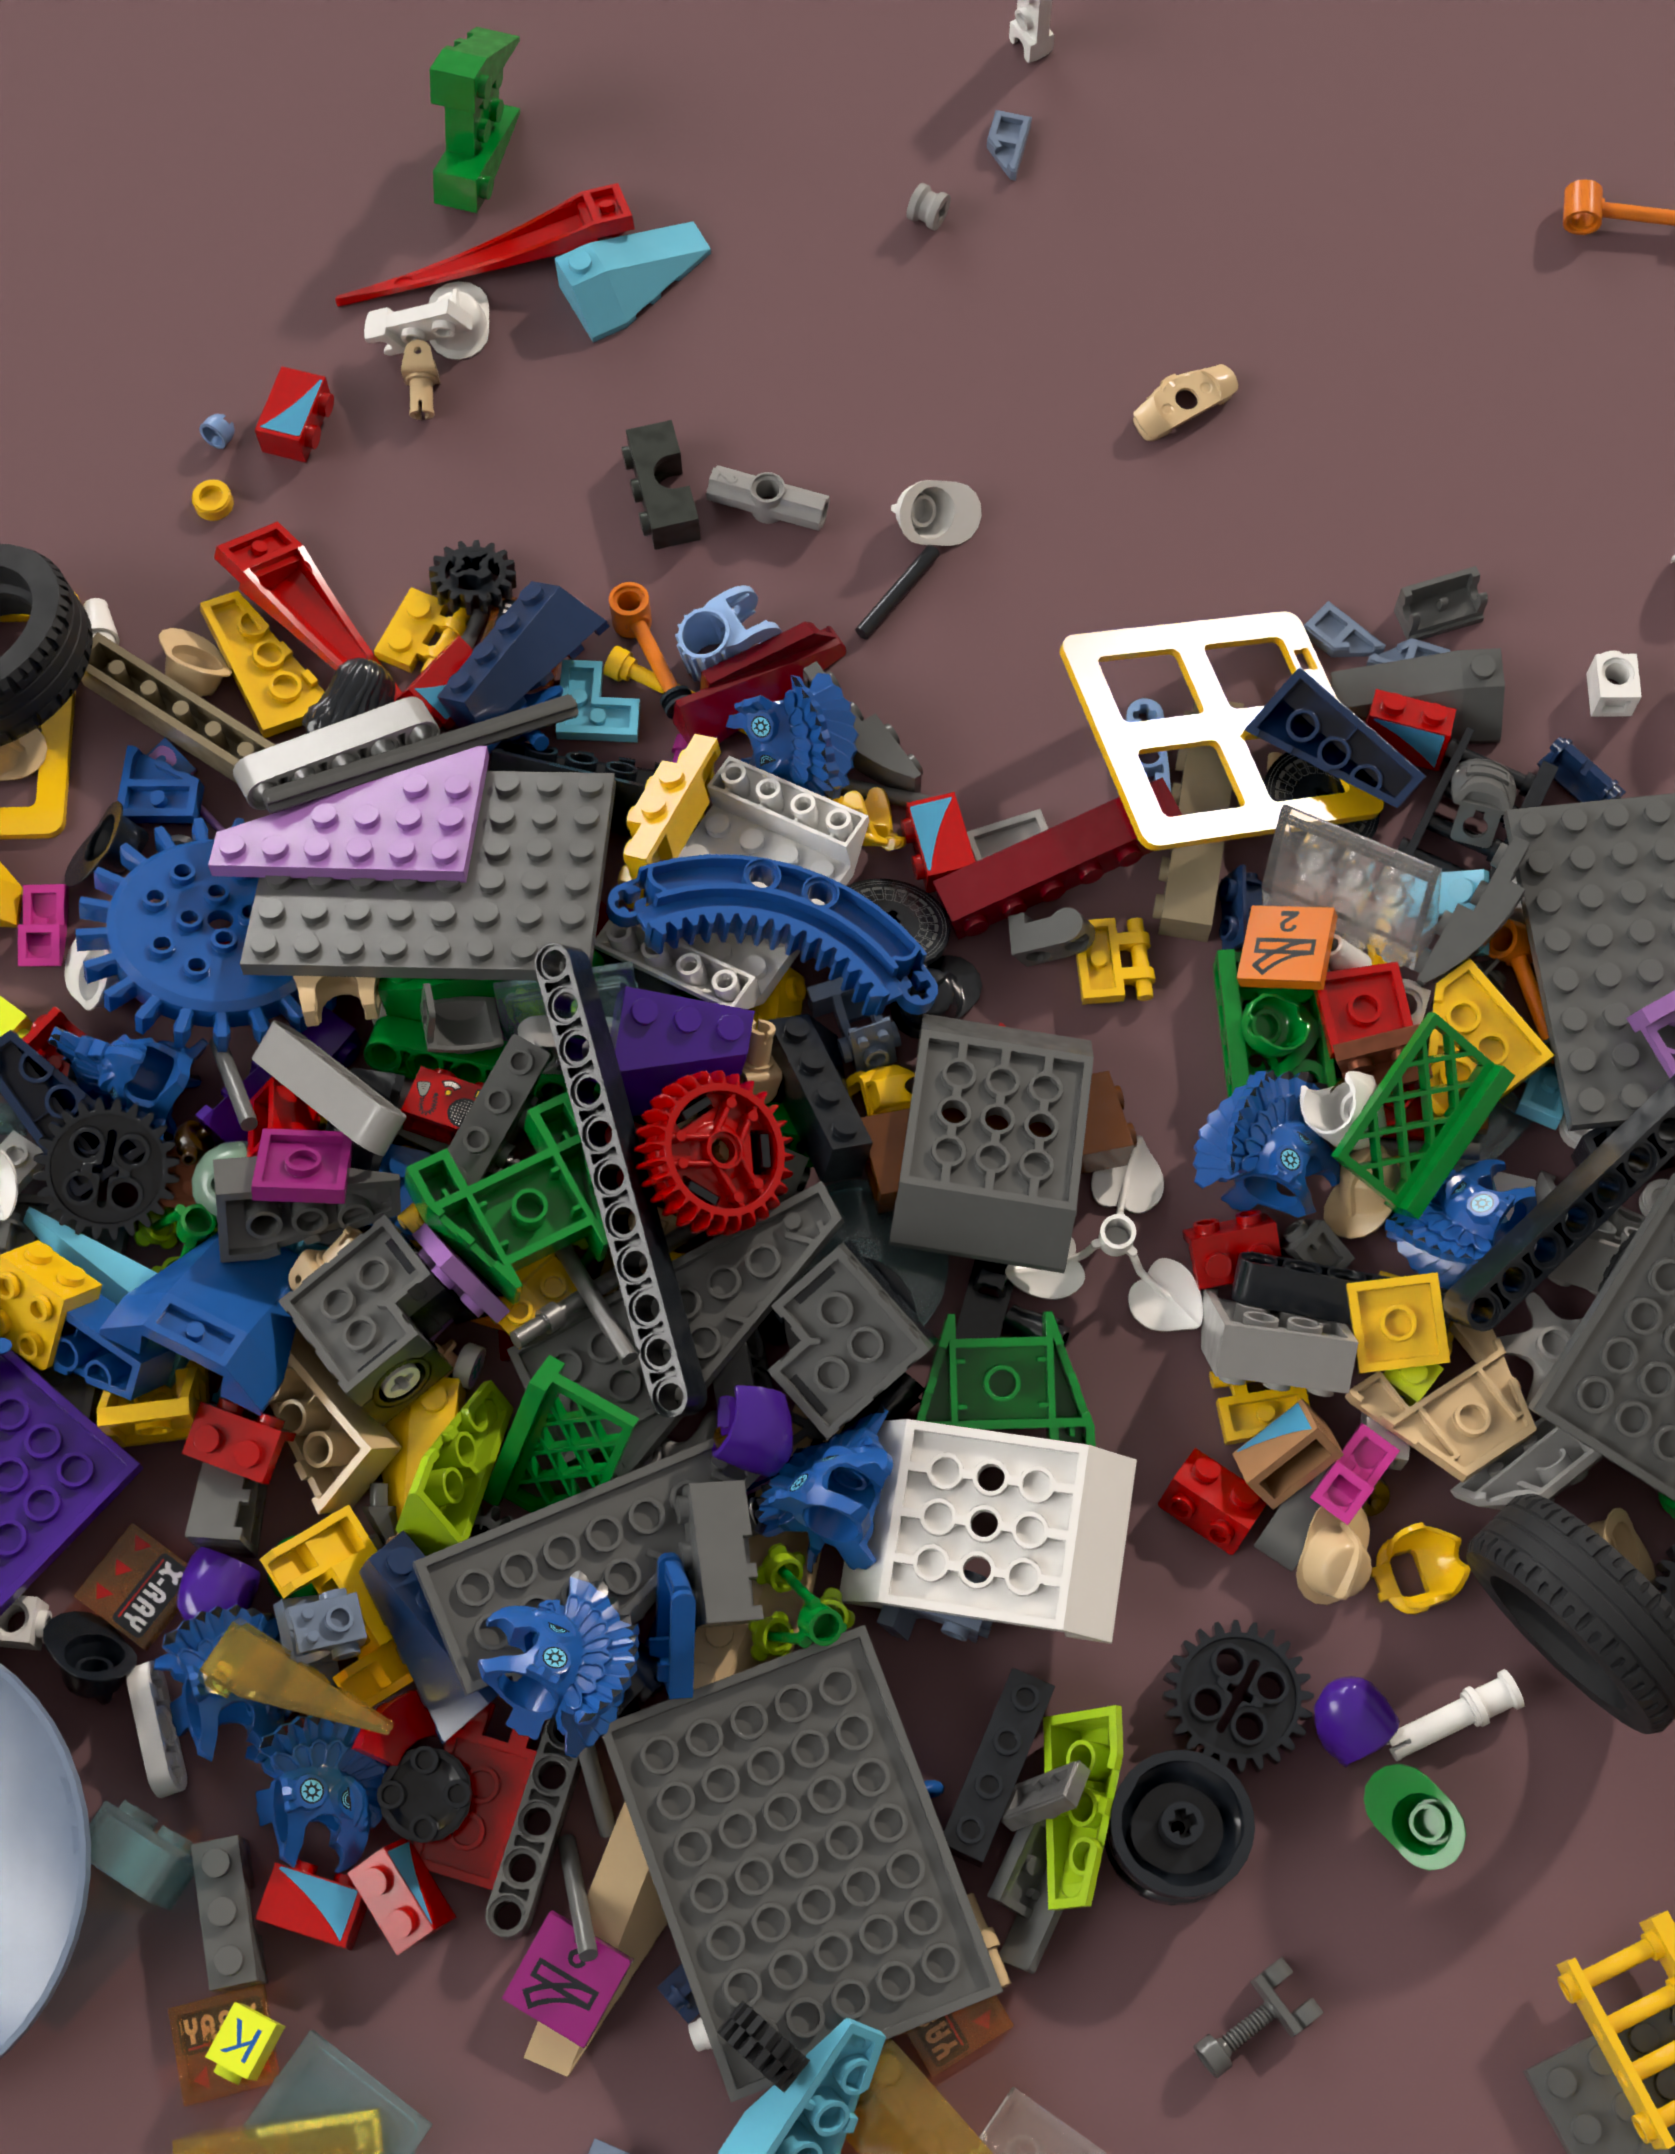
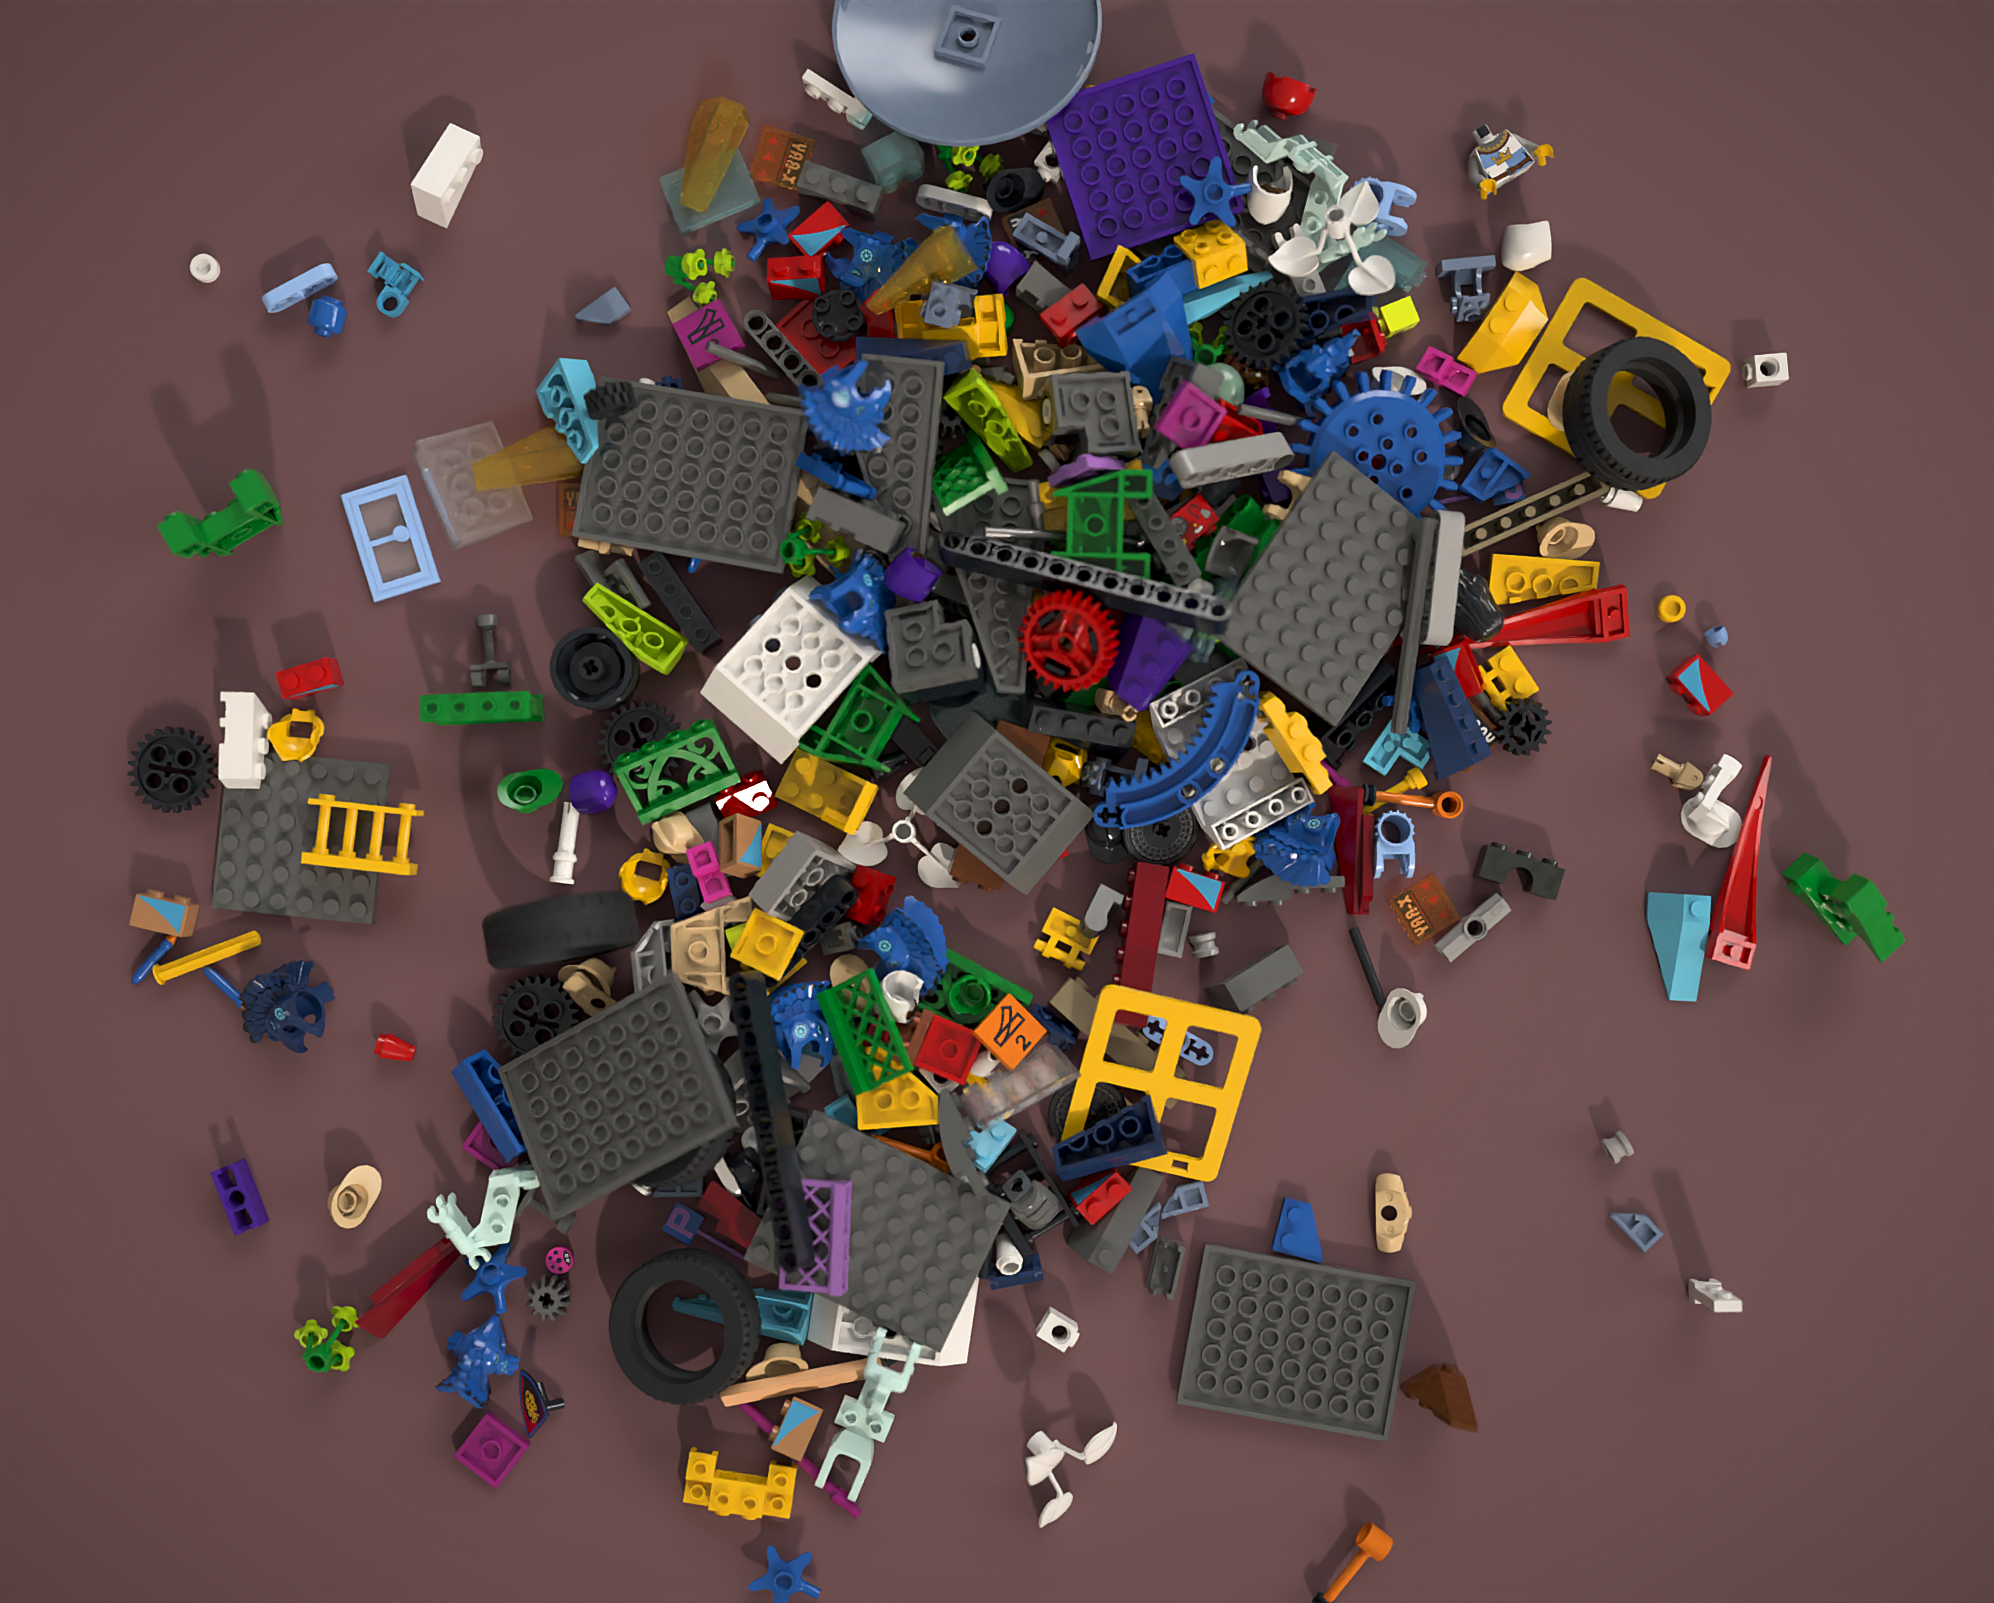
camera: 125 degrees right, 20 degrees up
(86, 2006) = (836, 99): none -> white plate
(119, 1742) = (958, 180): none -> lime plant
(143, 1549) = (1049, 243): none -> sand blue bracket
(244, 2044) = (772, 165): neon yellow brick -> none
(346, 1991) = (768, 227): none -> blue animal
(387, 829) = (1373, 575): wing -> none
(473, 2062) = (695, 264): none -> lime plant
(782, 567) = (1423, 909): none -> clear orange tile
(1004, 789) = (1204, 945): none -> light grey wheel
(1011, 698) = (1256, 981): none -> dark grey wedge
(1045, 1796) = (646, 612): flat silver plate -> none
(1126, 1375) = (826, 791): none -> yellow bracket
(1244, 1655) = (672, 746): none -> green fence
(1283, 489) = (1297, 1231): none -> blue wing
(1350, 1965) = (481, 708): none -> green fence
(1358, 211) = (1445, 1393): none -> reddish brown wedge
(1402, 1498) = (684, 891): none -> dark blue hinge
(1419, 418) = (1295, 1342): none -> dark grey plate
(1571, 785) = (1007, 1255): none -> white cone
(1642, 1548) = (583, 992): none -> tan piece

